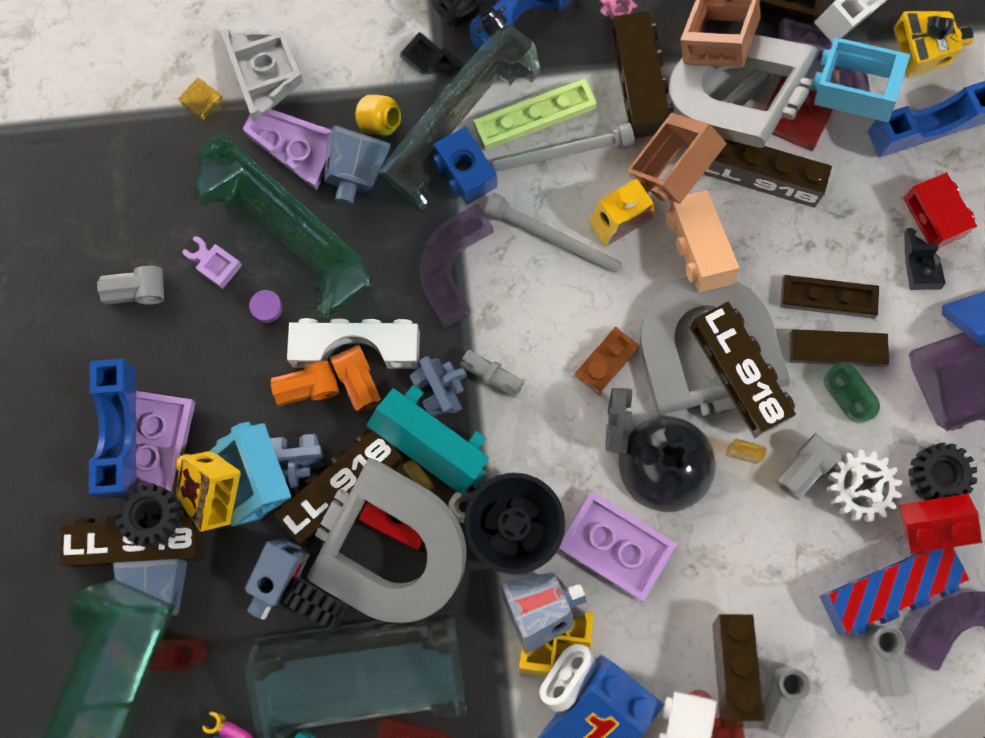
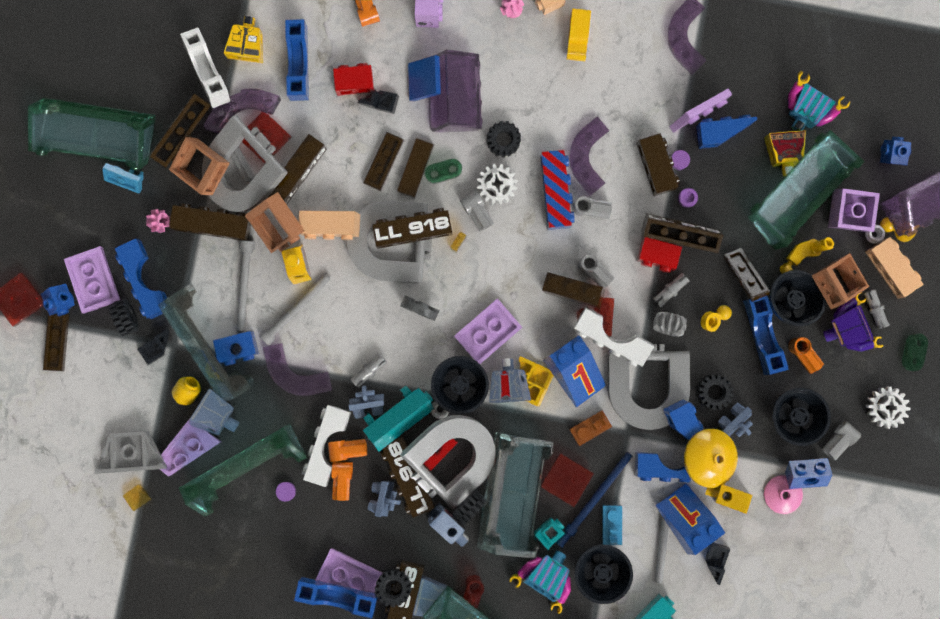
camera: 80 degrees left, 10 degrees up
(142, 285) = (250, 562): light grey piece -> none
(207, 489) = (387, 552): yellow torso -> none
(214, 264) = (249, 514): lavender plate -> none
(262, 470) = (385, 517): medium azure window -> none
(418, 475) = (415, 430): clear yellow tile -> none
(492, 20) = (150, 303): black plate -> none
(535, 114) = (215, 295): yellowish green plate -> none
(566, 677) = (550, 381): white plate -> none
(607, 360) = (381, 301): dark orange plate -> none
(654, 475) = (444, 298): black piece -> none
(864, 59) = (249, 90): medium azure window -> none
(939, 27) = (242, 37): black hinge -> none
(940, 523) = (530, 153): red brick -> none

